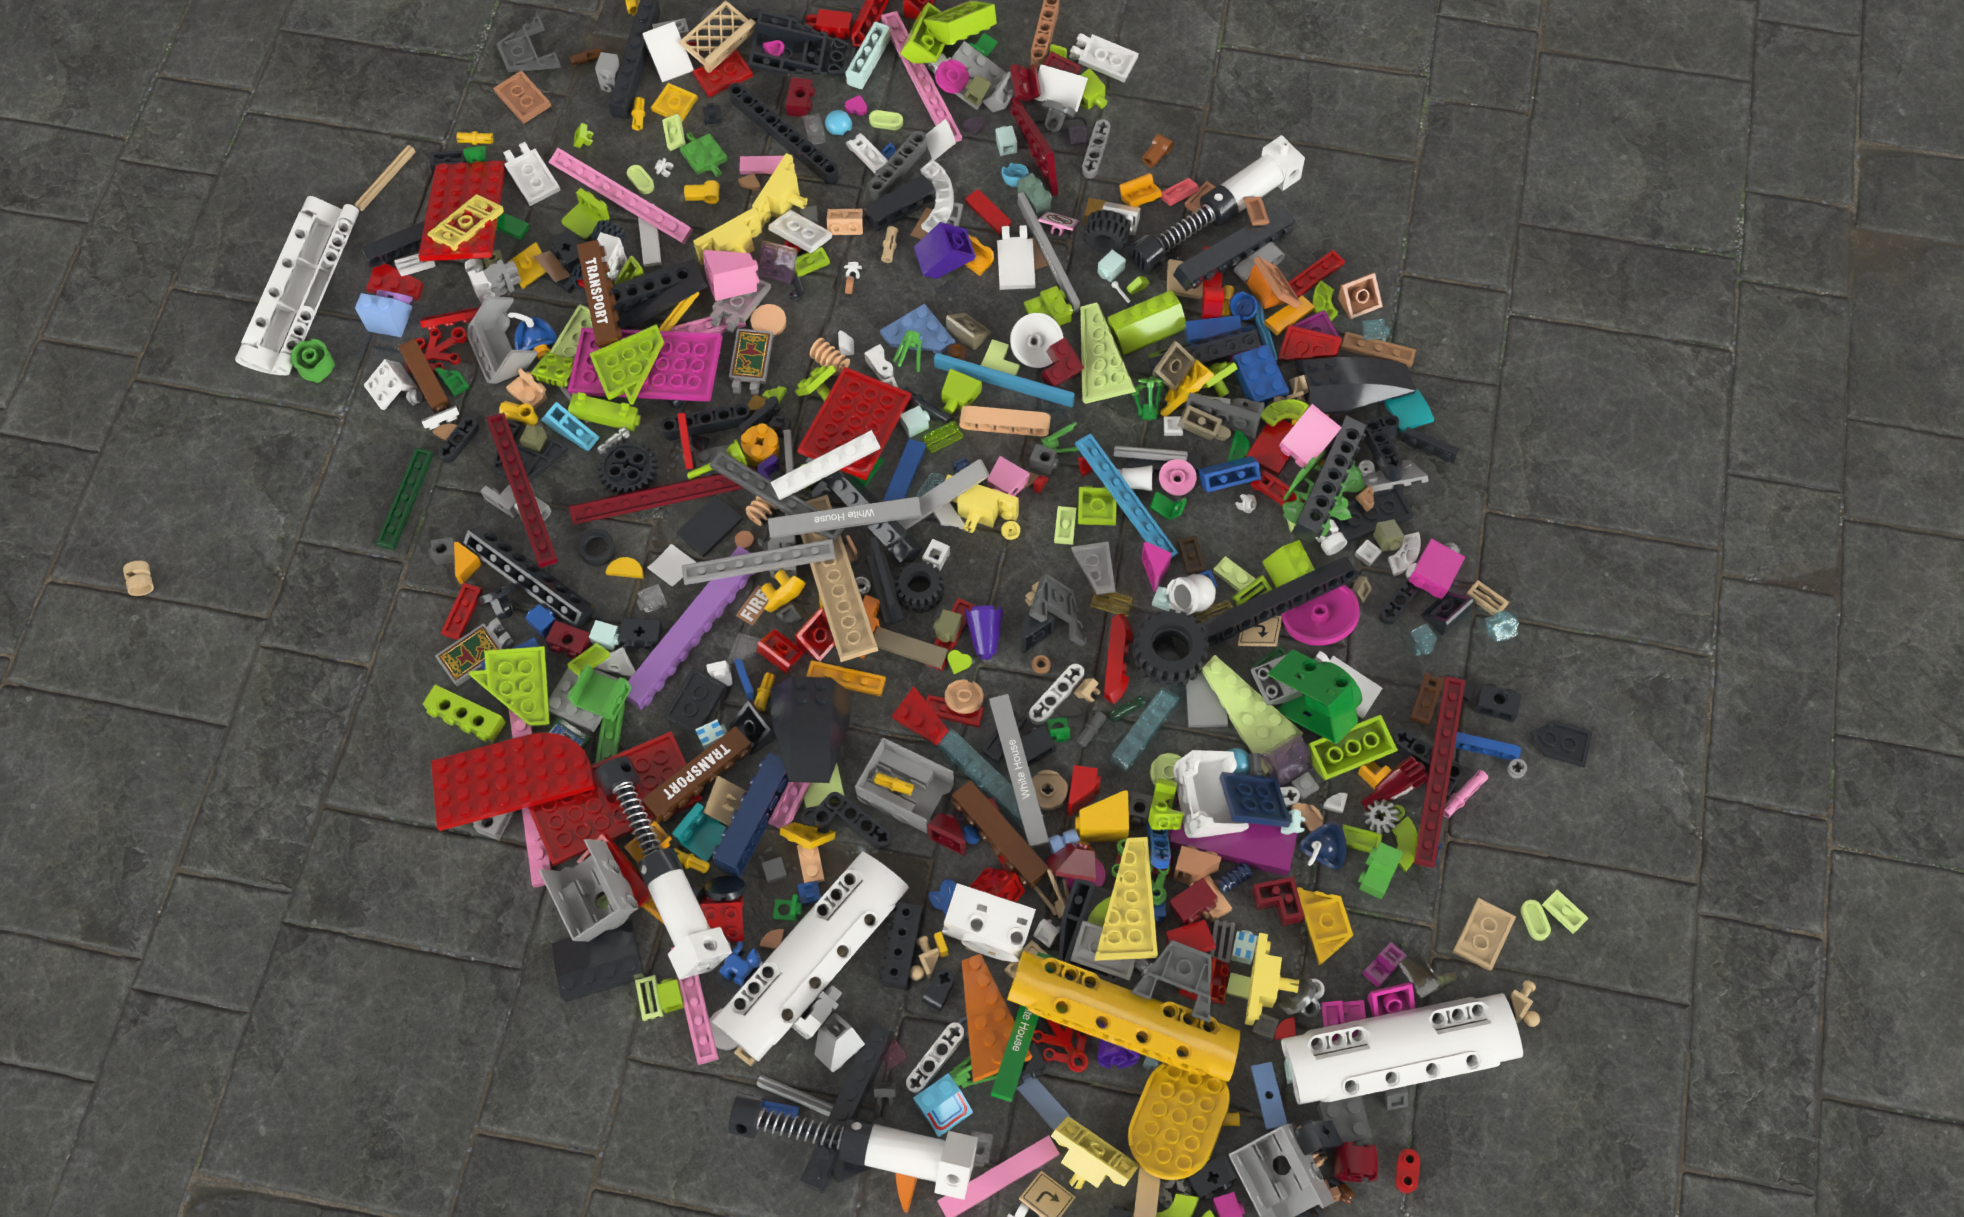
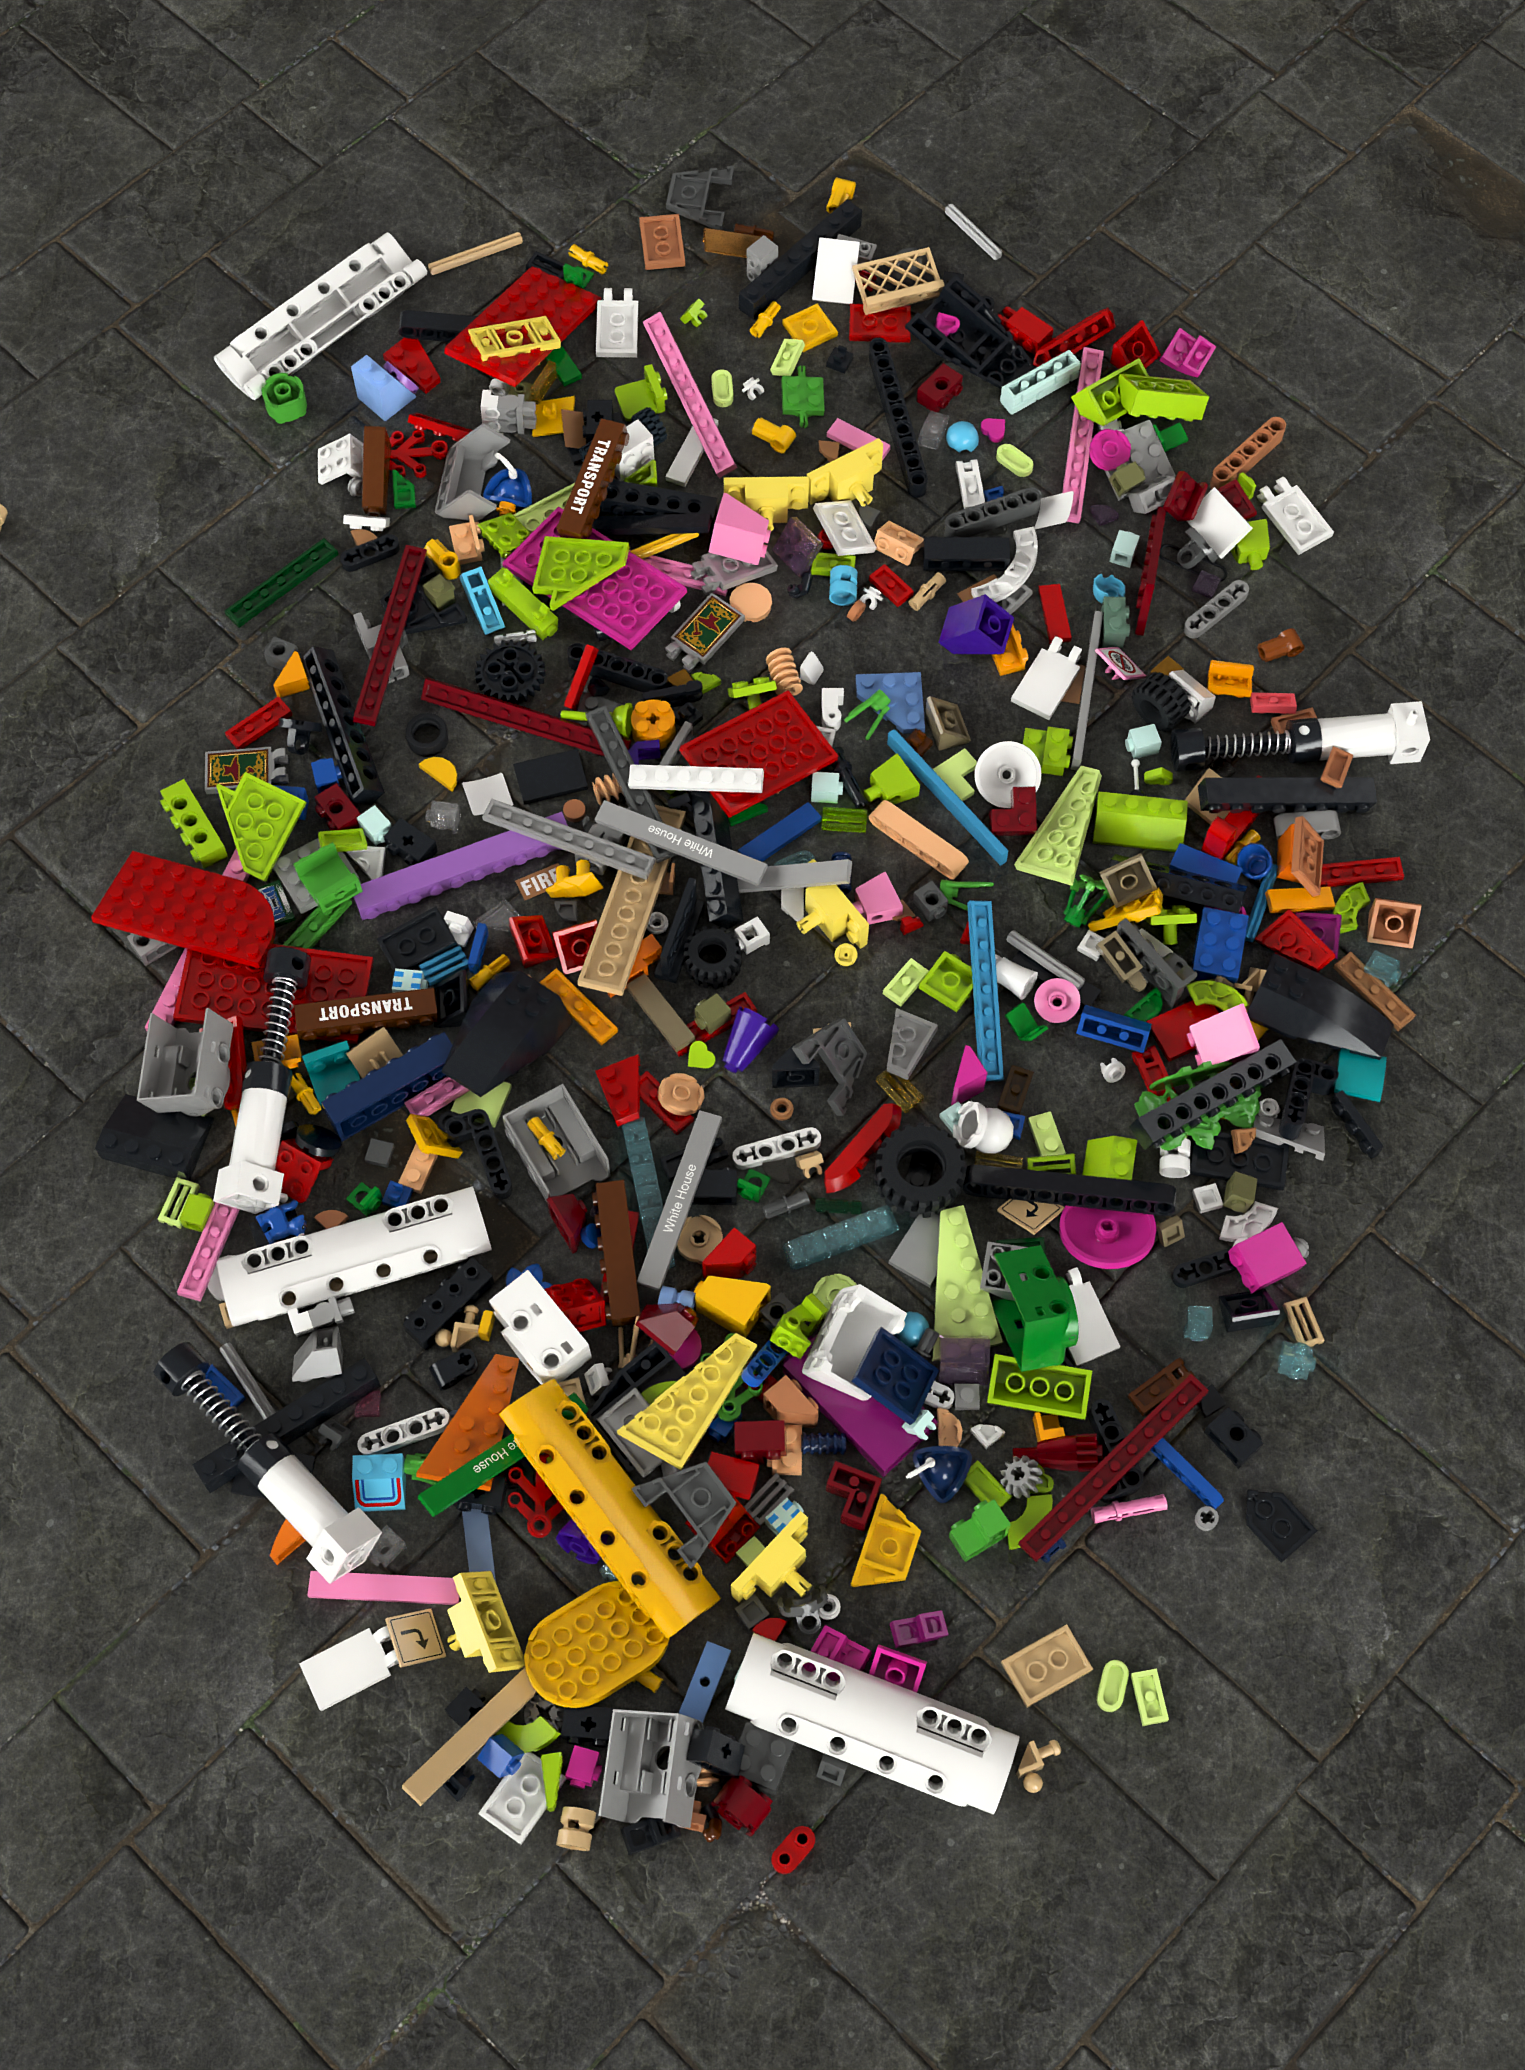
camera: 30 degrees right, 0 degrees up
(414, 262) = (435, 353): white tile -> none
(505, 244) = (544, 382): none -> clear yellow tile
(575, 71) = (727, 242): none -> clear orange piece
(728, 691) = (443, 962): none -> dark azure tile
(828, 272) = (843, 585): none -> medium azure wheel
(861, 253) = (891, 585): none -> red plate
(1423, 978) = (947, 1666): clear smoke bracket -> none

